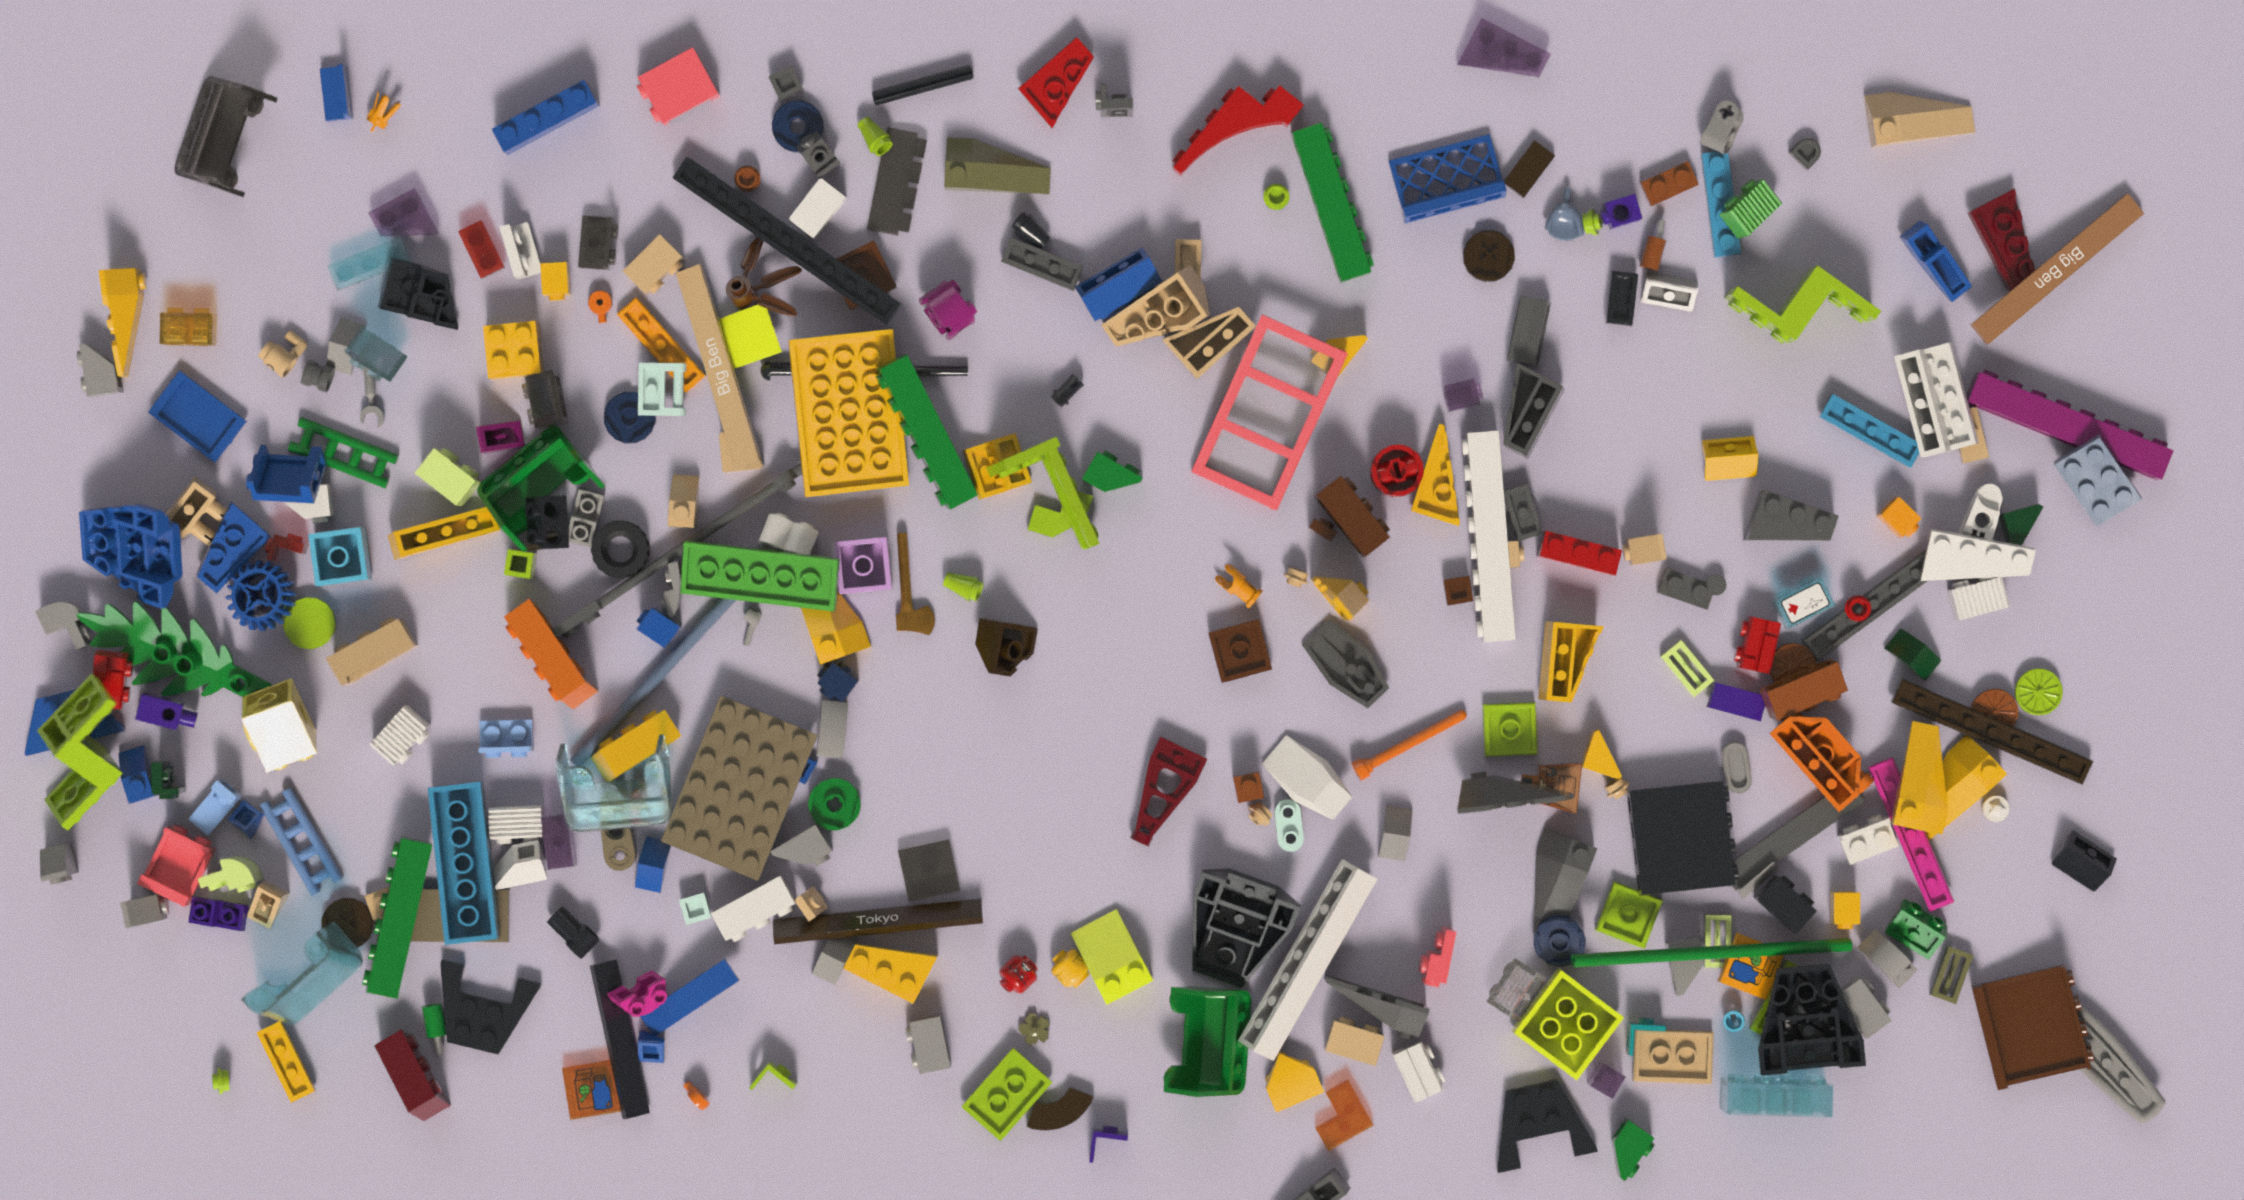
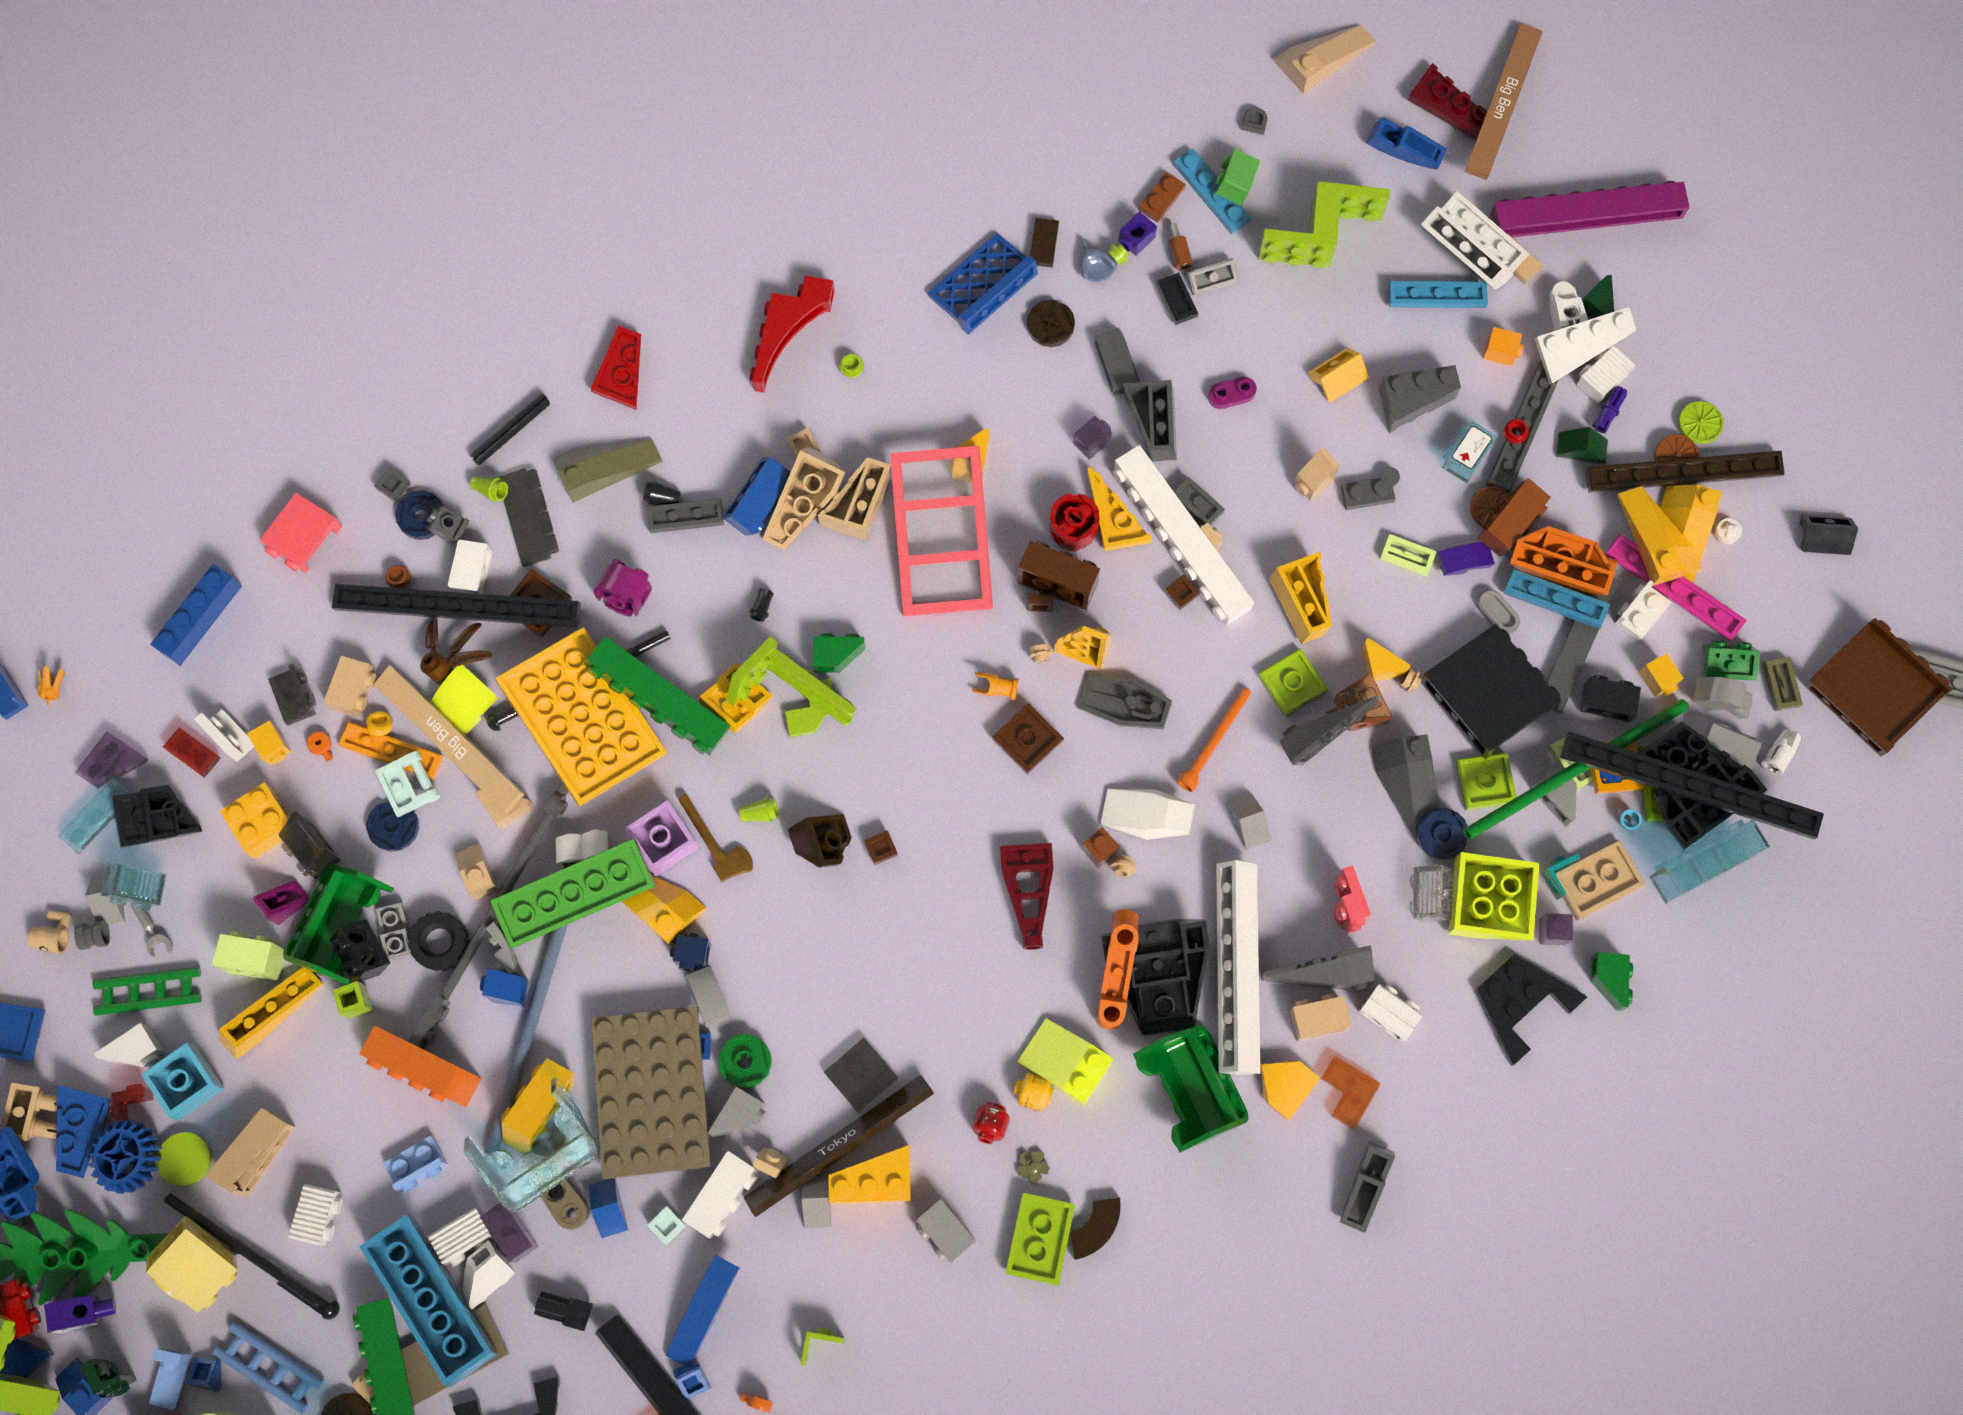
camera: 30 degrees left, 15 degrees down
(286, 476) = (99, 1037): blue panel -> none
(351, 781) = (287, 1282): none -> black bar
(643, 997) = (660, 1333): dark pink cylinder -> none
(663, 314) = (379, 723): none -> yellow tile
(752, 617) = (589, 938): light grey hand -> none
(1054, 679) = (881, 847): none -> reddish brown plate
(1107, 1132) = (1150, 1222): dark purple bracket -> none
(1116, 106) = (677, 359): dark grey bracket -> none
(1200, 906) = (1118, 969): none -> orange plate
(1288, 825) = (1153, 862): light aqua plate -> none
(1331, 202) = (899, 345): green brick -> none
(1502, 51) = (971, 166): clear purple wing -> none
(1579, 553) = (1264, 508): red brick -> none
(1619, 420) = (1233, 393): none -> magenta plate
(1722, 130) = (1178, 131): light grey piece -> none
(1758, 644) = (1454, 504): red brick -> none
(1758, 880) = (1575, 692): light grey sticker -> none
(1794, 787) = (1557, 599): none -> dark azure plate
(1799, 1025) = (1692, 785): none -> black plate
(1908, 1035) = (1781, 752): none -> white hinge
(1961, 633) = (1610, 409): none -> dark purple axle
(2097, 480) = (1640, 235): plate -> none

